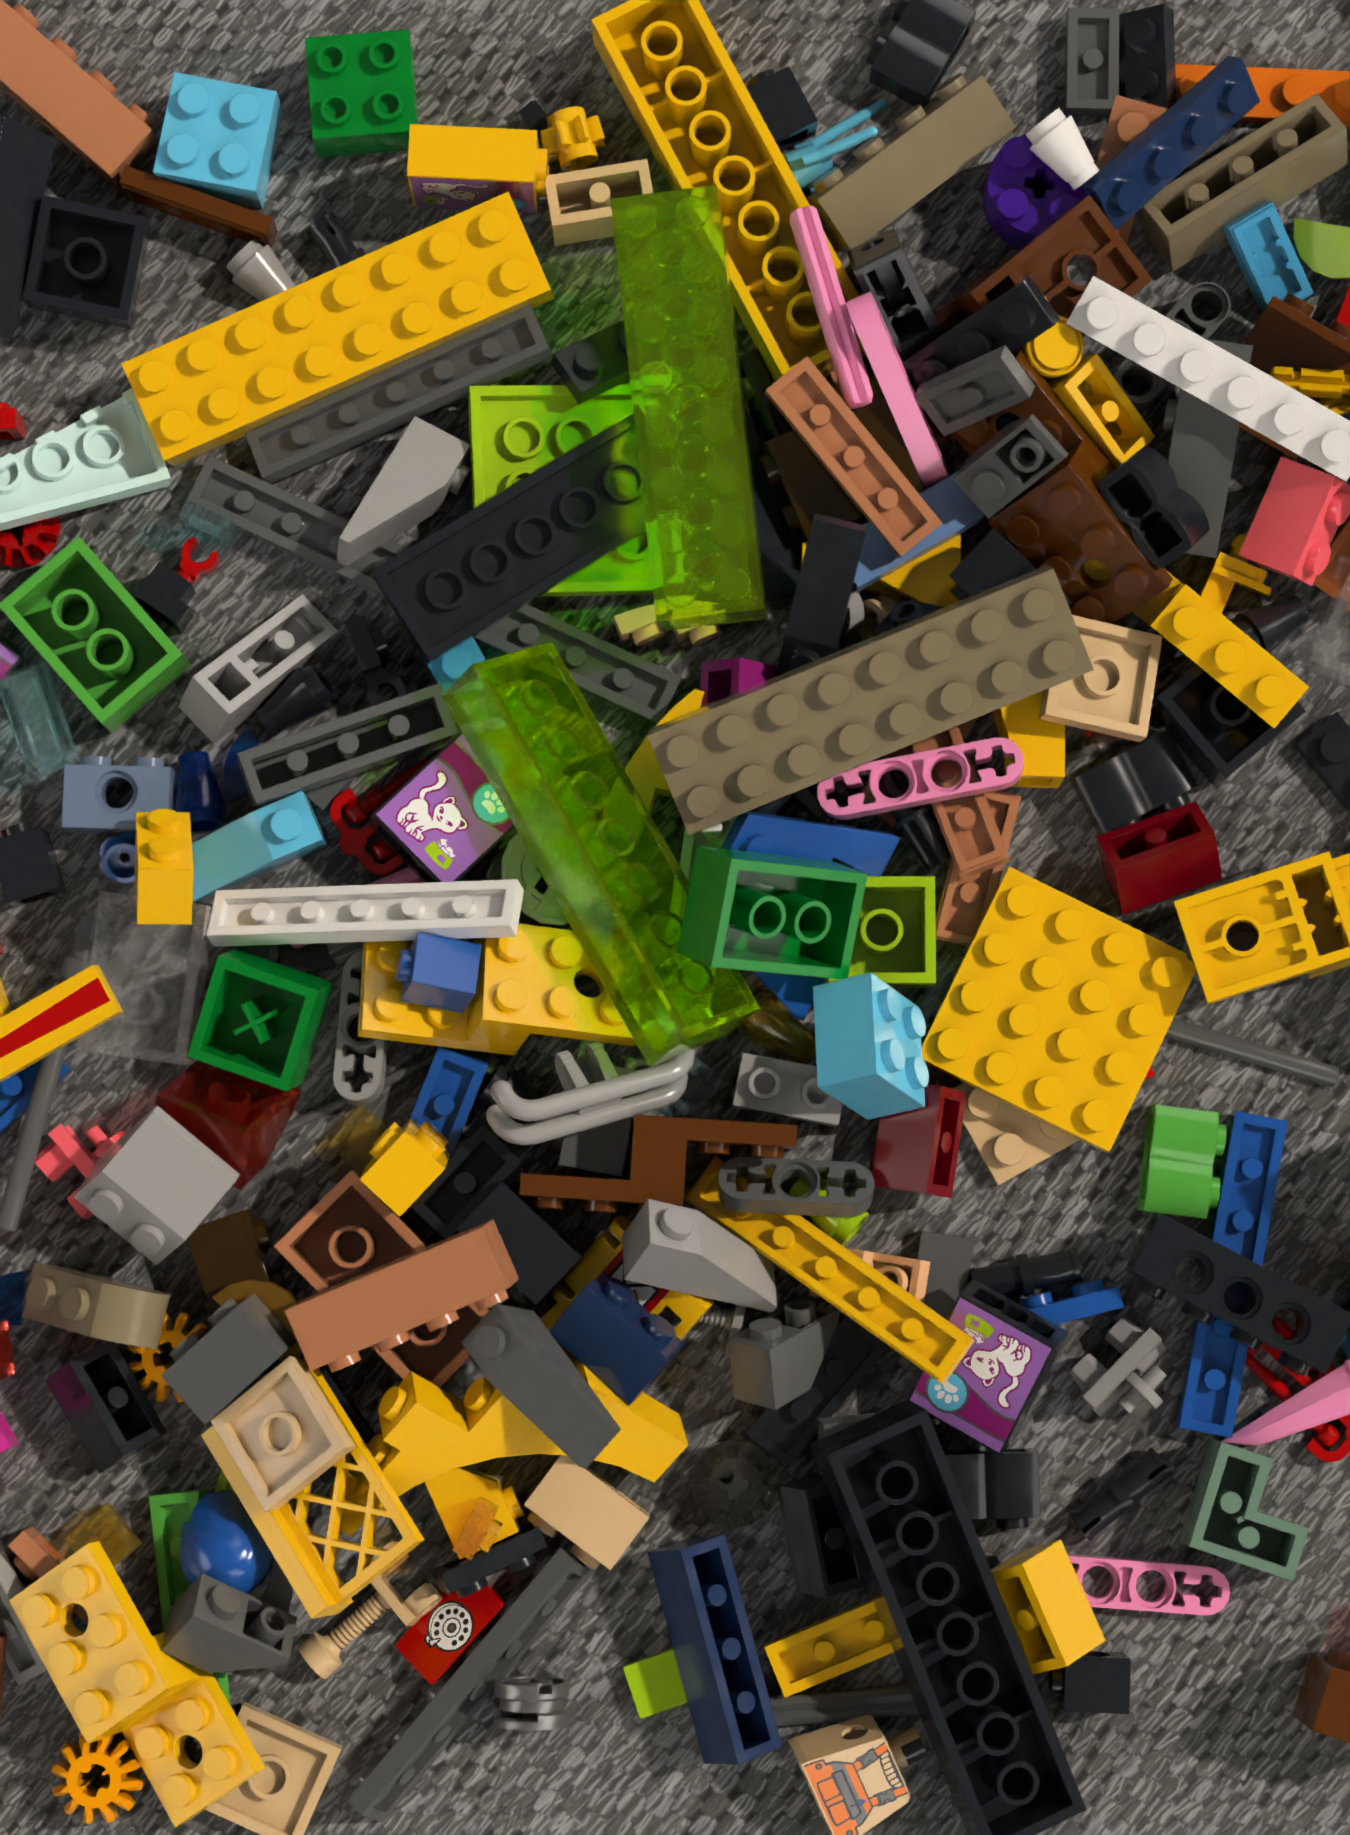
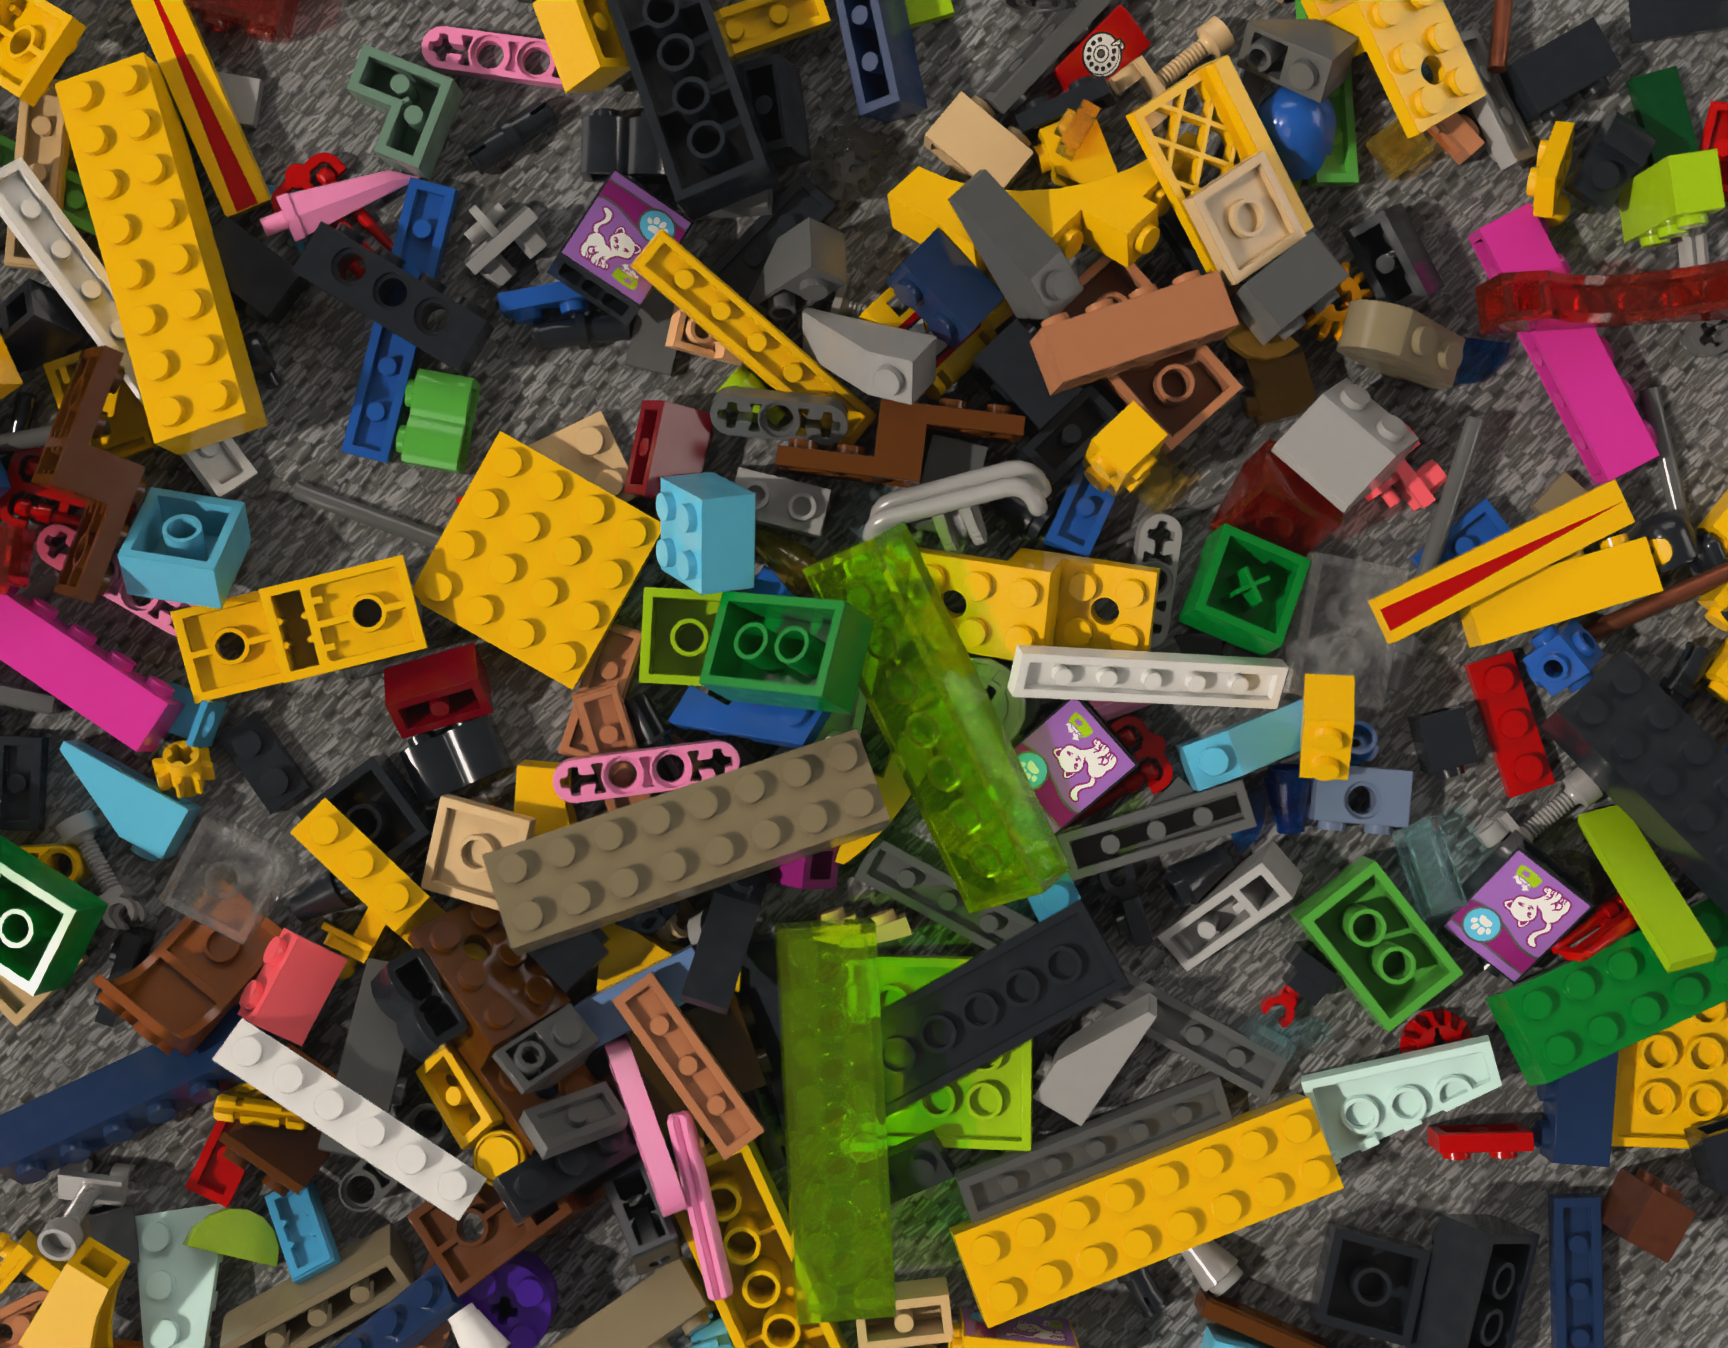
camera: 170 degrees left, 5 degrees up
(439, 972) = (1086, 619): blue brick -> none

